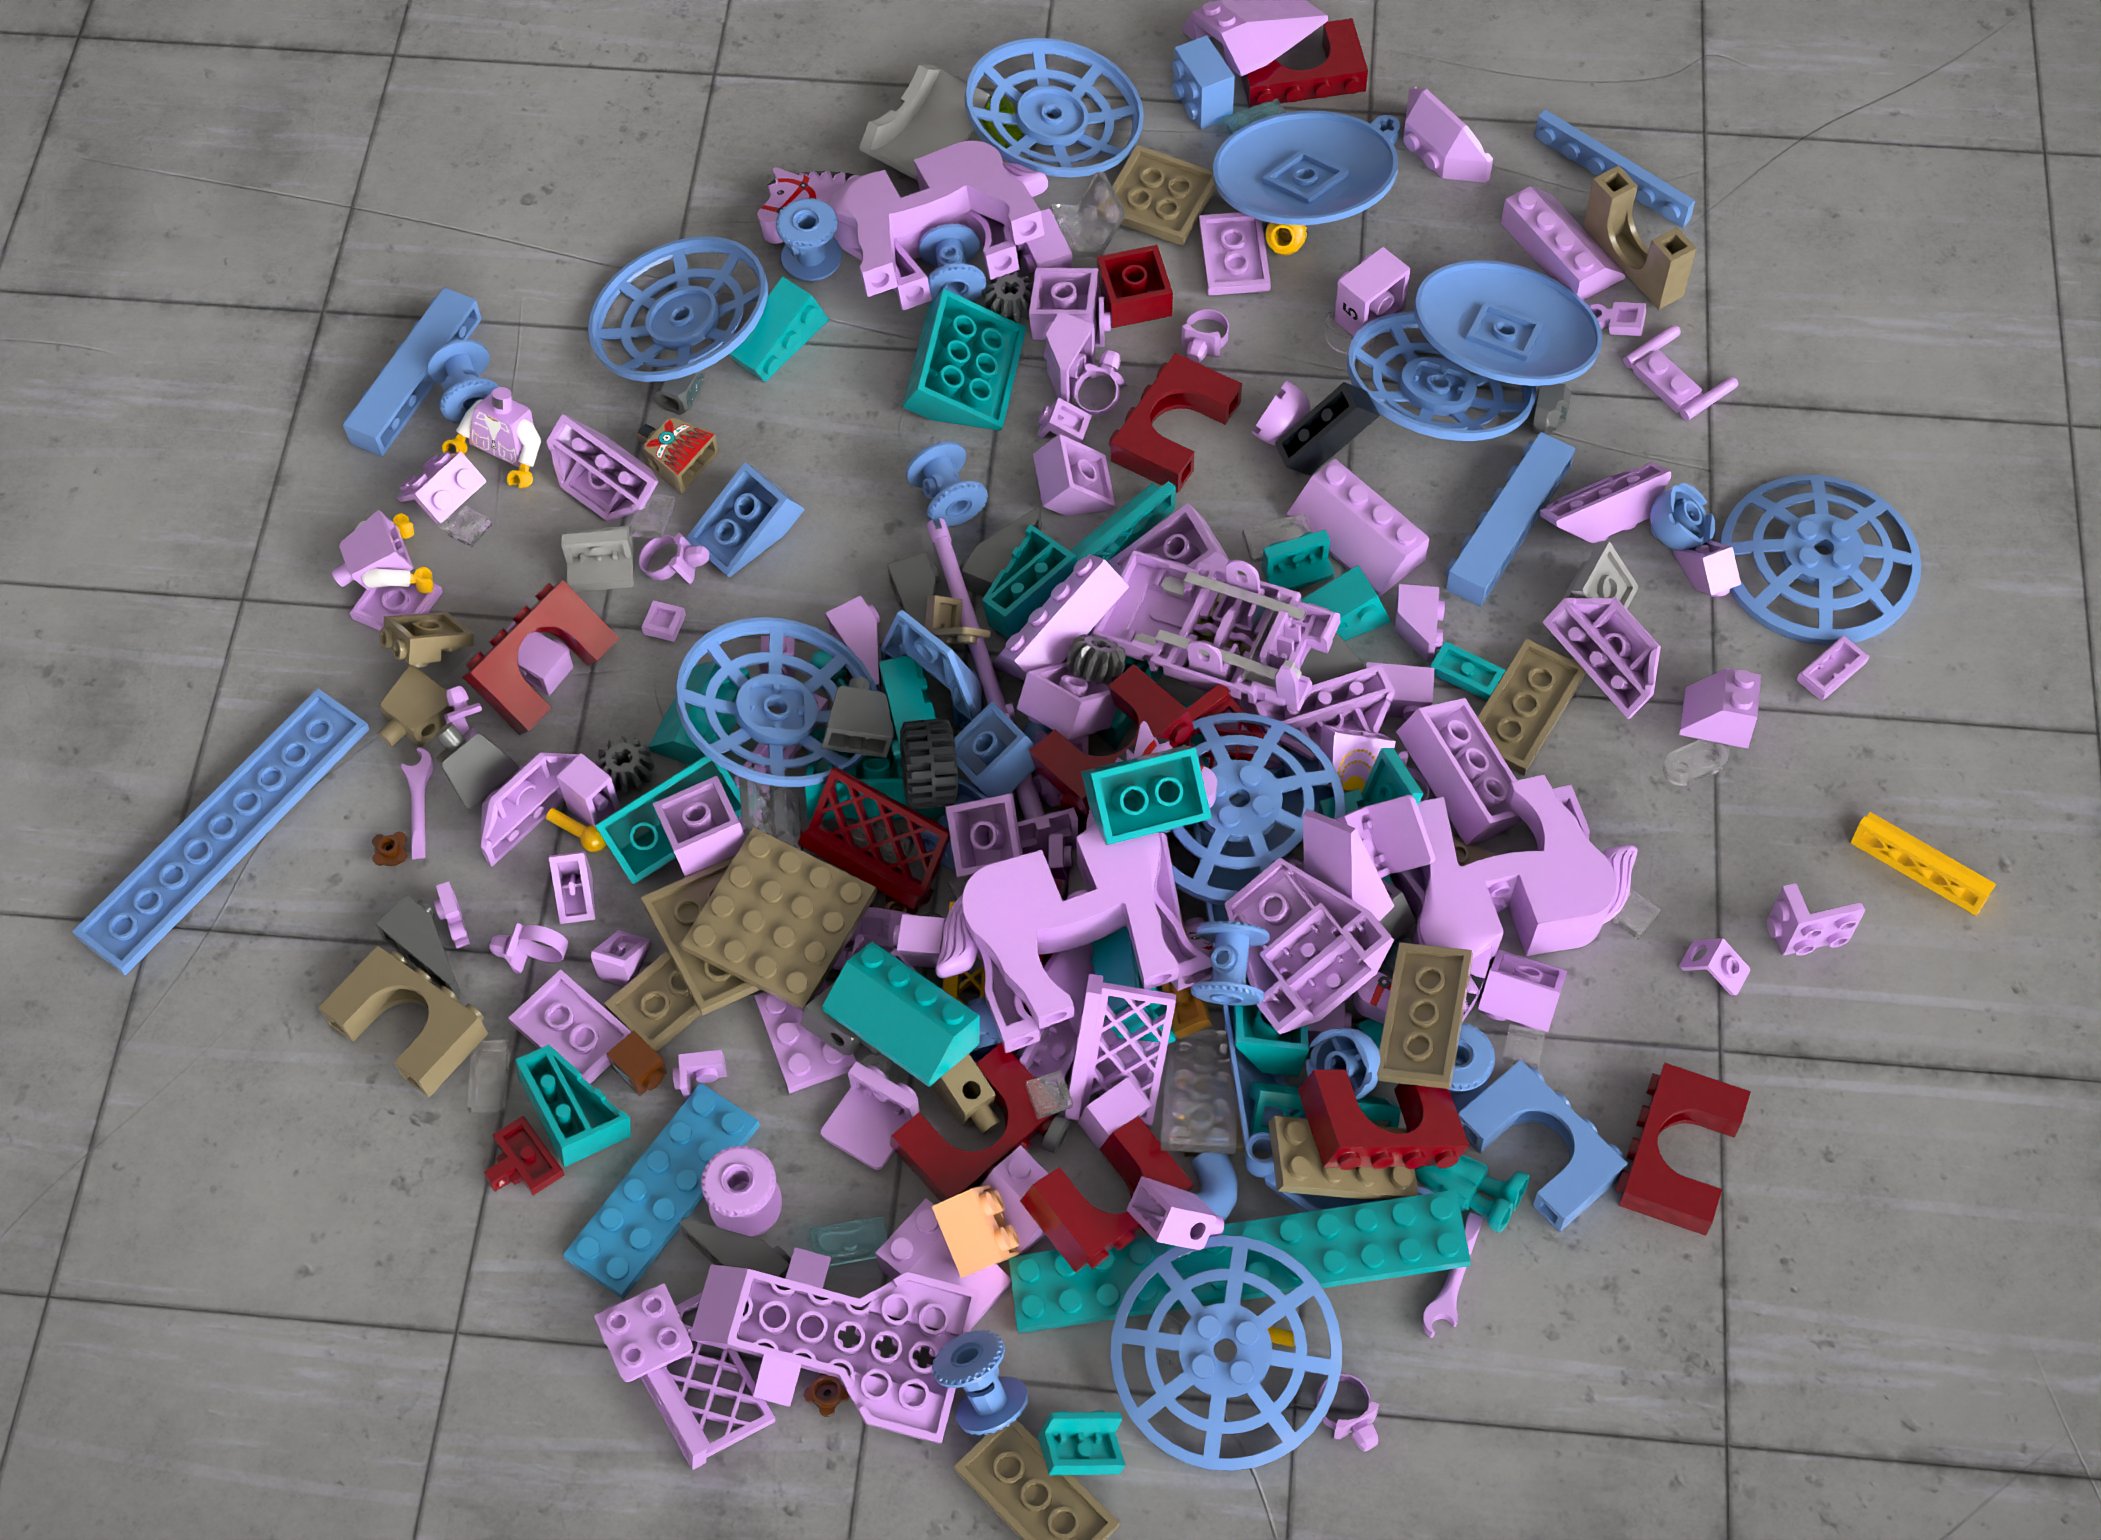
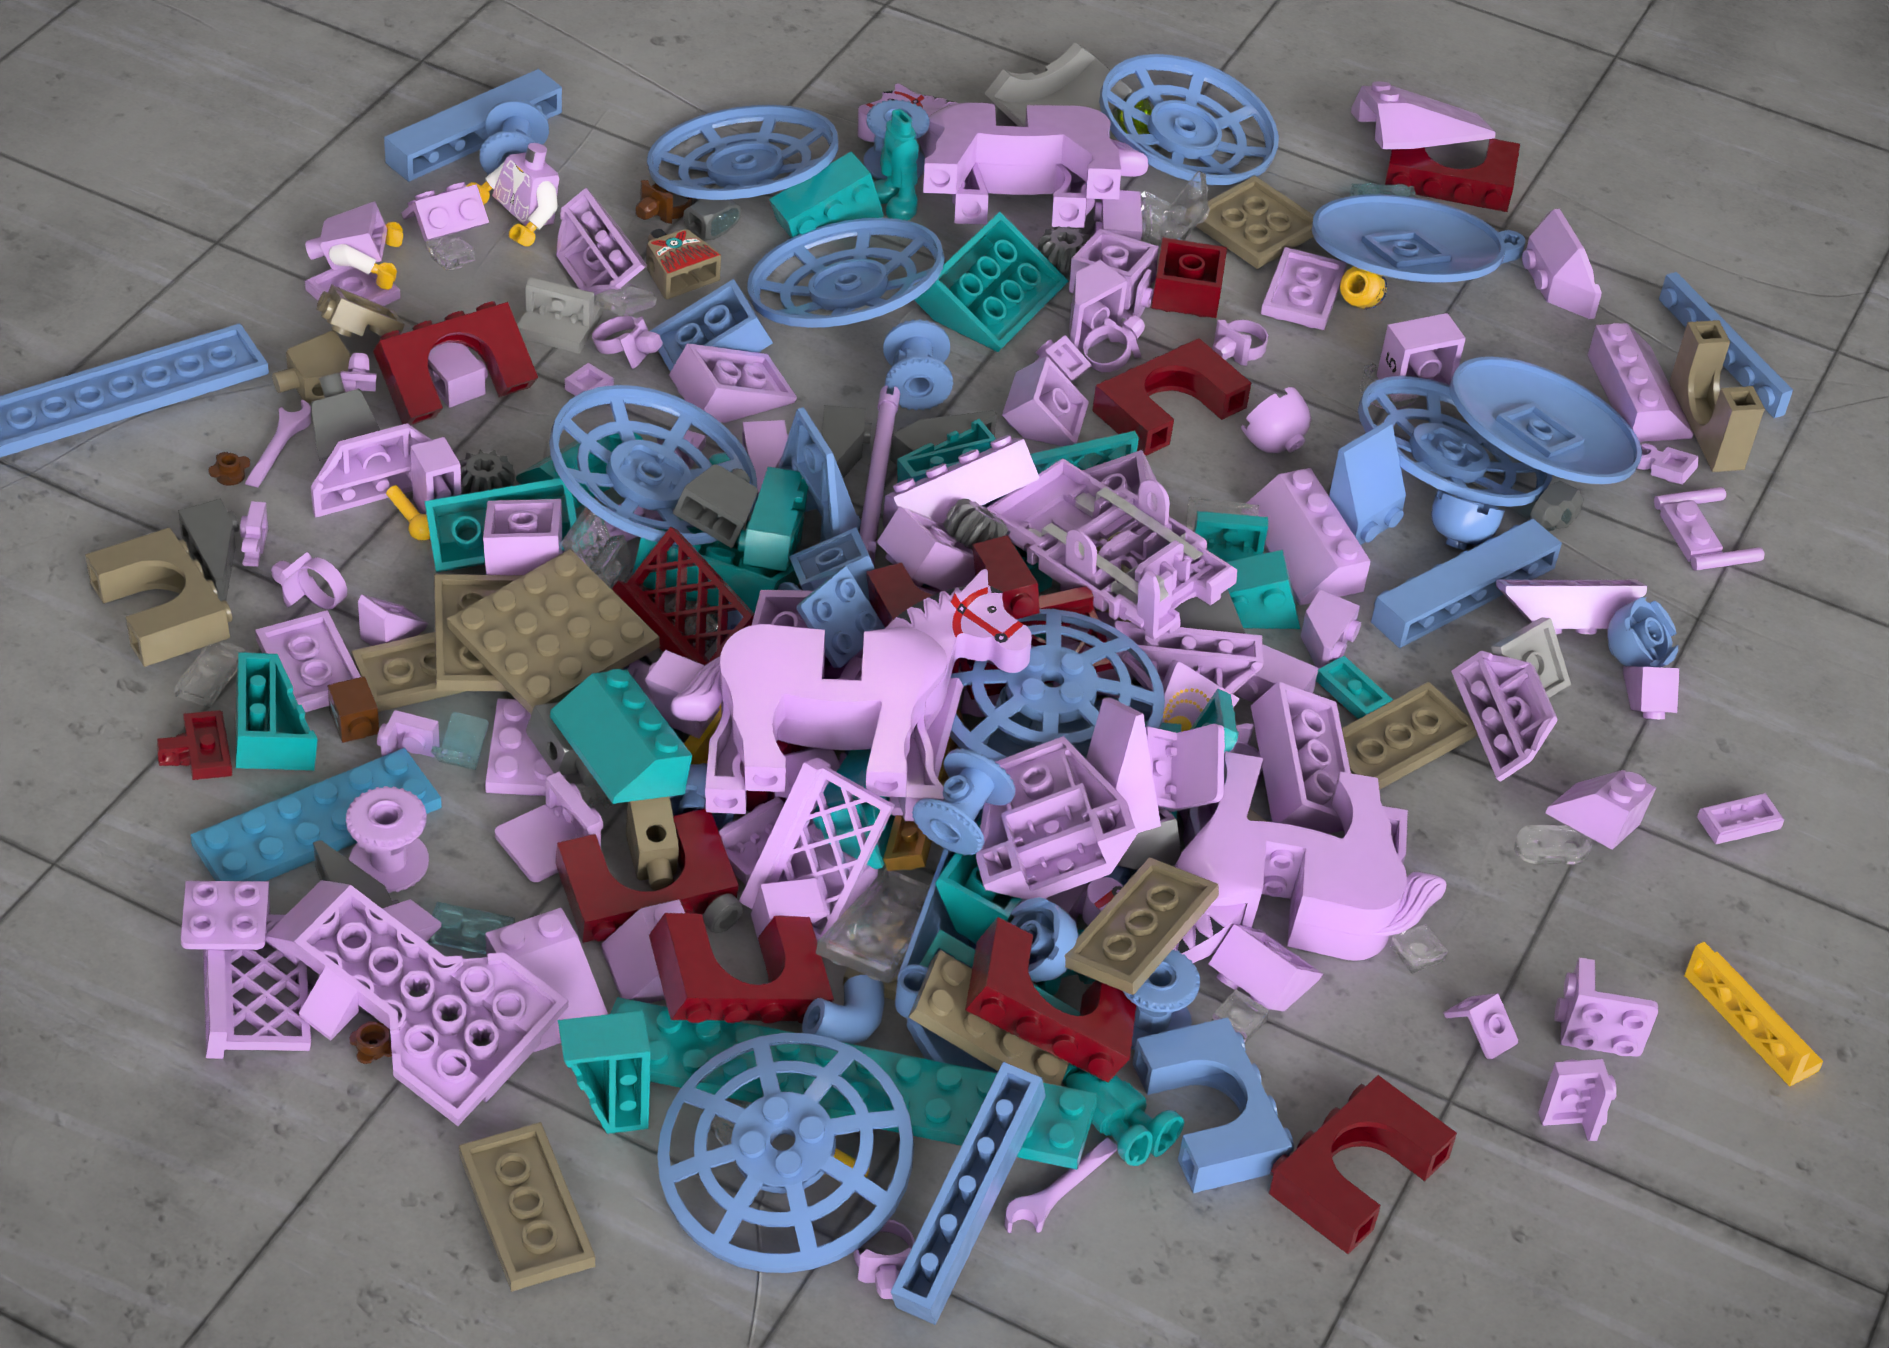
camera: 15 degrees right, 15 degrees down
(573, 887) = (379, 550): lavender slope -> none
(623, 395) = (656, 201): none -> reddish brown piece
(747, 1054) = (462, 741): none -> clear light blue bracket
(788, 569) = (730, 382): none -> lavender slope
(829, 274) = (900, 166): none -> teal piece
(839, 399) = (848, 282): none -> medium blue dish
(928, 763) = (762, 546): black tyre -> none
(944, 621) = (856, 463): dark tan bracket -> none
(949, 250) = (1024, 197): medium blue hose -> none
(973, 1364) = (524, 1077): medium blue hose -> none
(976, 1229) = (594, 947): light nougat slope -> none
(1028, 807) = (841, 611): none -> medium blue bracket
(1049, 1094) = (730, 865): clear plate -> none
(1054, 1345) = (611, 1066): none -> teal wedge
(1082, 1443) = (597, 1170): teal bracket -> none
(1147, 794) = (952, 615): teal slope -> none
(1186, 1220) = (786, 989): lavender torso -> none
(1202, 82) = (1343, 145): medium blue brick -> none
(1327, 429) = (1313, 437): black brick -> none
(1395, 459) = (1369, 483): none -> medium blue slope
(1402, 1336) = (968, 1193): none -> medium blue brick
(1484, 458) = (1464, 520): none -> medium blue cylinder
(1822, 570) = (1794, 734): medium blue dish -> none
(1831, 1006) = (1578, 1094): none -> lavender bracket

